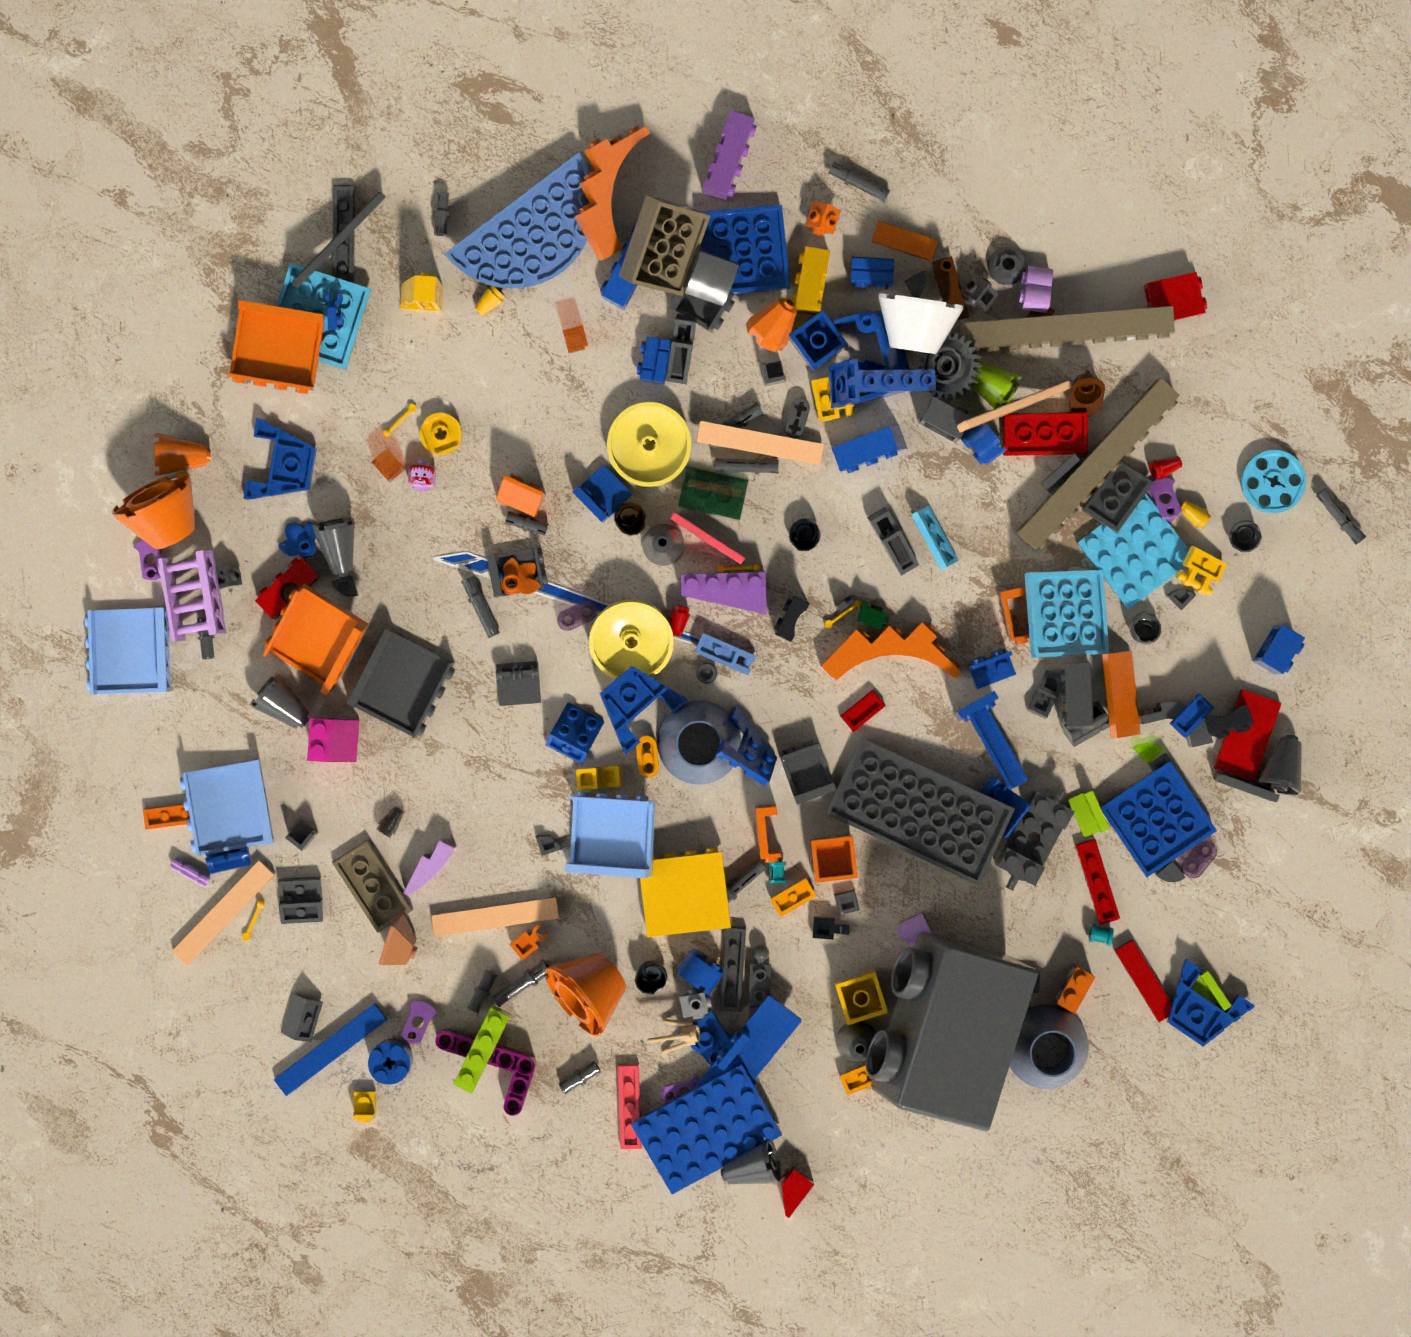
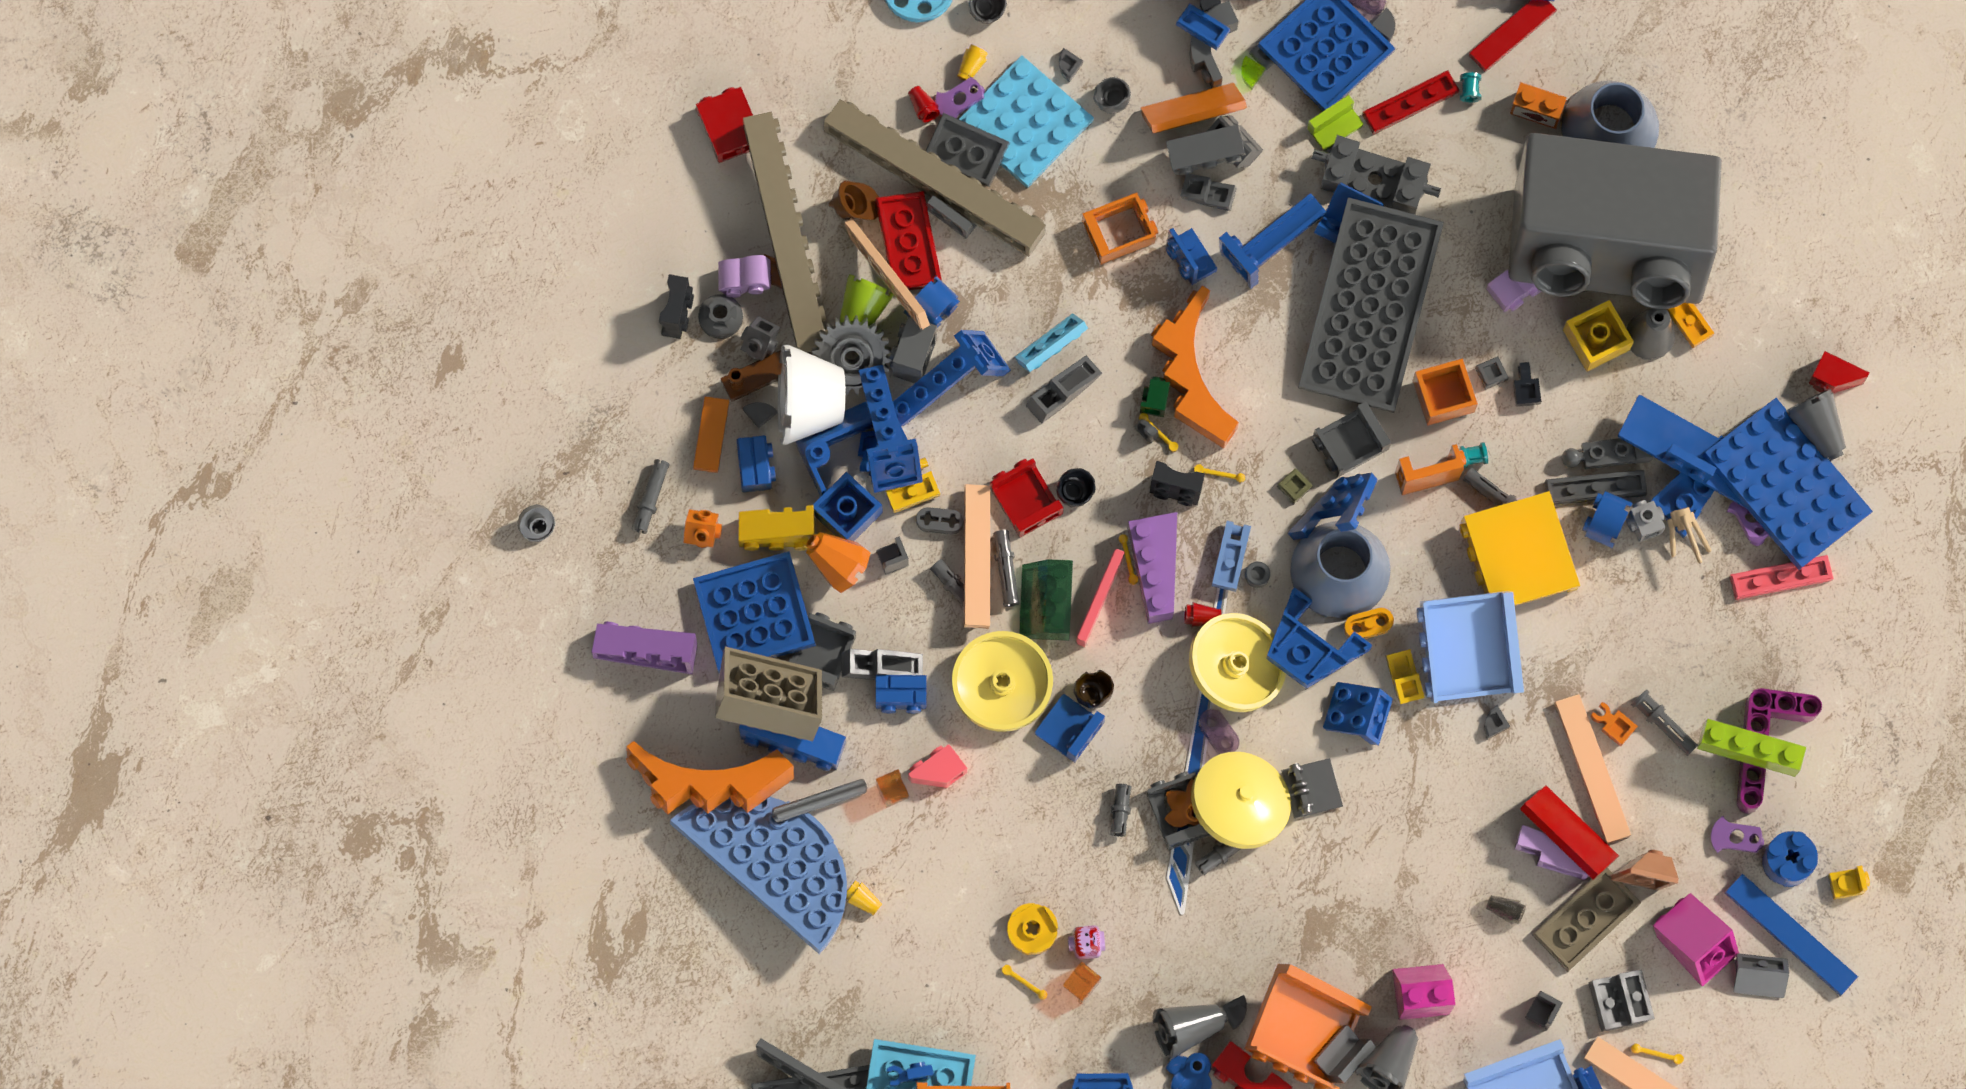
camera: 105 degrees left, 15 degrees down
(291, 665) = (1343, 1055): none -> dark grey panel
(339, 970) = (1696, 938): none -> dark pink slope
(401, 683) = (1339, 923): dark grey panel -> none
(421, 293) = (869, 968): yellow wedge -> none
(441, 214) = (768, 973): dark grey pin -> none
(442, 885) = (1569, 832): none -> red tile
(482, 991) = (1684, 768): dark grey pin -> none
(515, 621) = (1241, 800): none -> light yellow dish
(521, 496) = (1091, 819): orange slope -> none
(575, 277) = (819, 800): none -> axle
(579, 1077) = (1760, 638): dark grey pin -> none
(584, 380) = (939, 770): none -> coral slope
(587, 989) = (1658, 640): orange cone -> none
(650, 977) = (1625, 575): black hair -> none
(670, 552) = (1116, 649): dark grey cone -> none
(711, 278) = (795, 637): dark grey slope -> none
(777, 718) = (1294, 485): none -> olive tile
(792, 674) = (1239, 477): none -> yellow hinge
(793, 897) = (1499, 432): light orange plate -> none
(804, 492) = (1025, 497): none -> red panel
(851, 82) = (536, 523): none -> dark grey plate
(862, 710) = (1266, 391): red tile -> none
(869, 448) = (963, 431): blue wedge -> none
(932, 471) = (975, 352): none -> blue bracket
(1012, 225) = (675, 313): none -> black brick
(1066, 613) = (1113, 180): medium azure plate -> none
(1203, 564) = (1027, 45): yellow plate -> none

